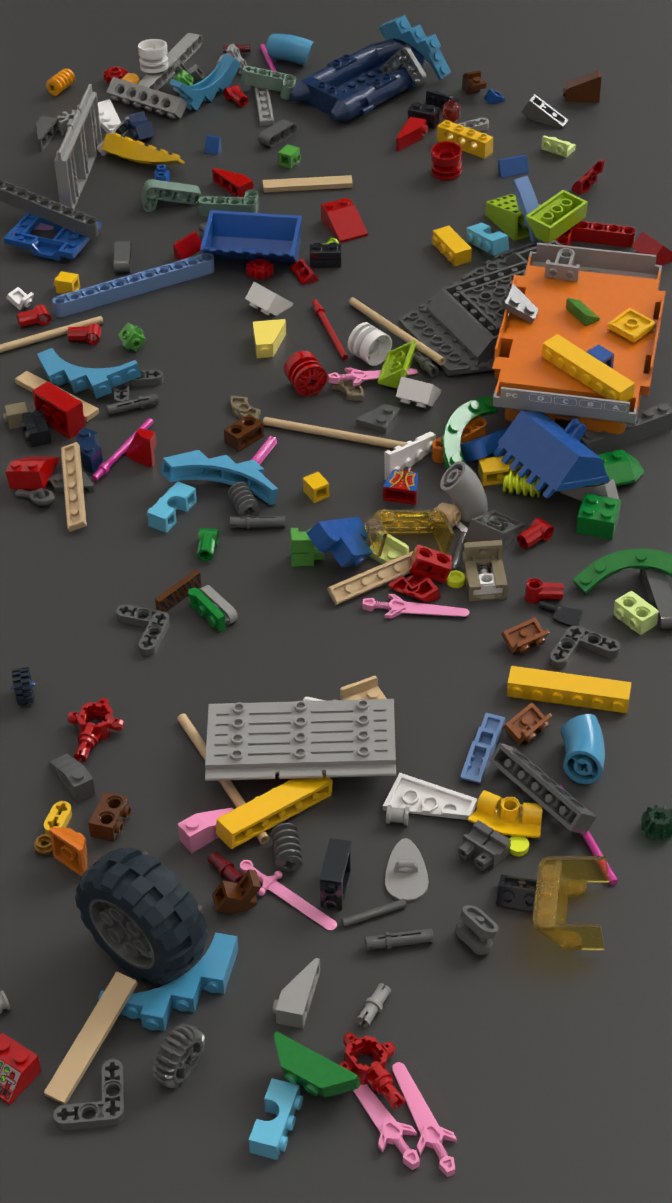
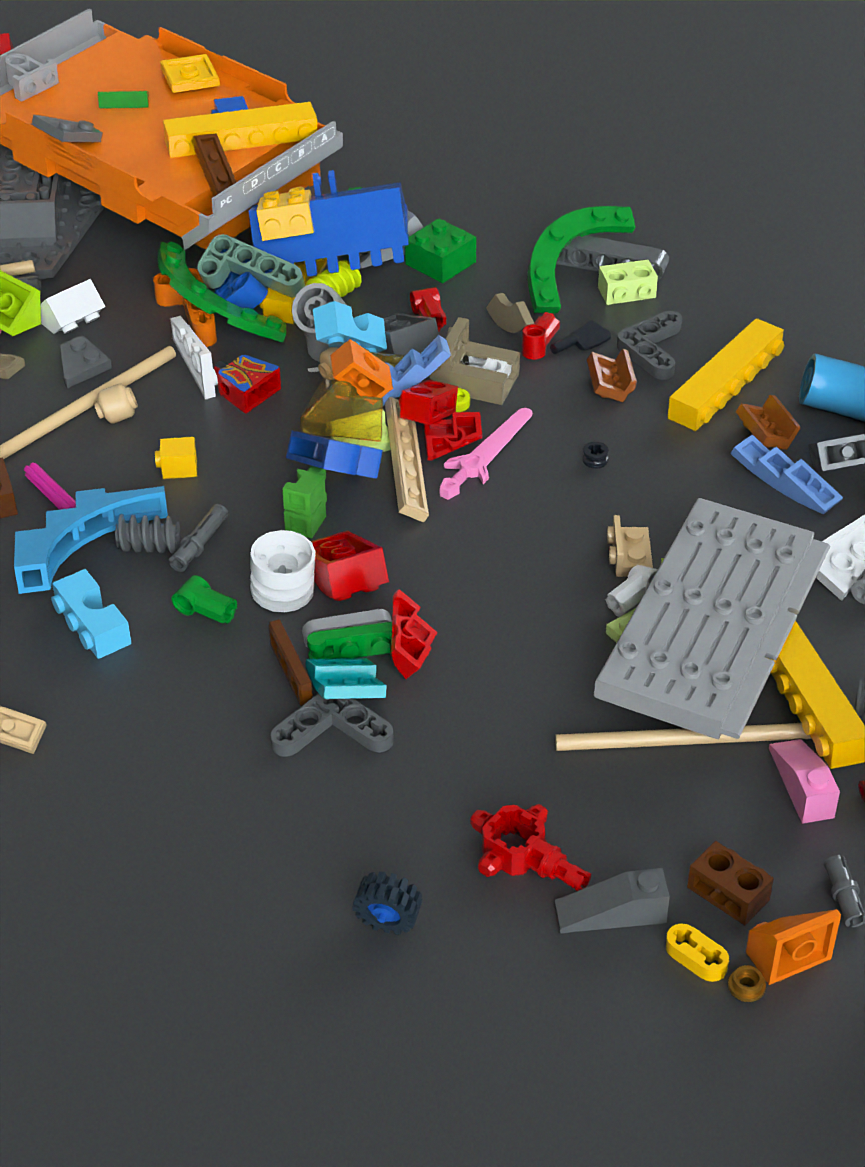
camera: 65 degrees left, 0 degrees up
(177, 616) = (345, 678): none -> teal slope
(221, 627) = (409, 635): none -> red slope
(239, 559) = (282, 571): none -> white wheel
(268, 582) = (348, 565): none -> red slope
(345, 445) = (116, 403): none -> tan head
(405, 514) = (361, 369): none -> orange brick
(438, 488) = (336, 326): none -> medium azure arch
(439, 541) = (416, 366): none -> medium blue slope
(443, 651) = (595, 455): none -> black bush
(487, 427) = (259, 263): none -> sand green beam
(525, 422) = (285, 214): none -> yellow bracket
(543, 373) = (213, 162): none -> reddish brown tile
(552, 569) = (508, 315): none -> dark tan tile

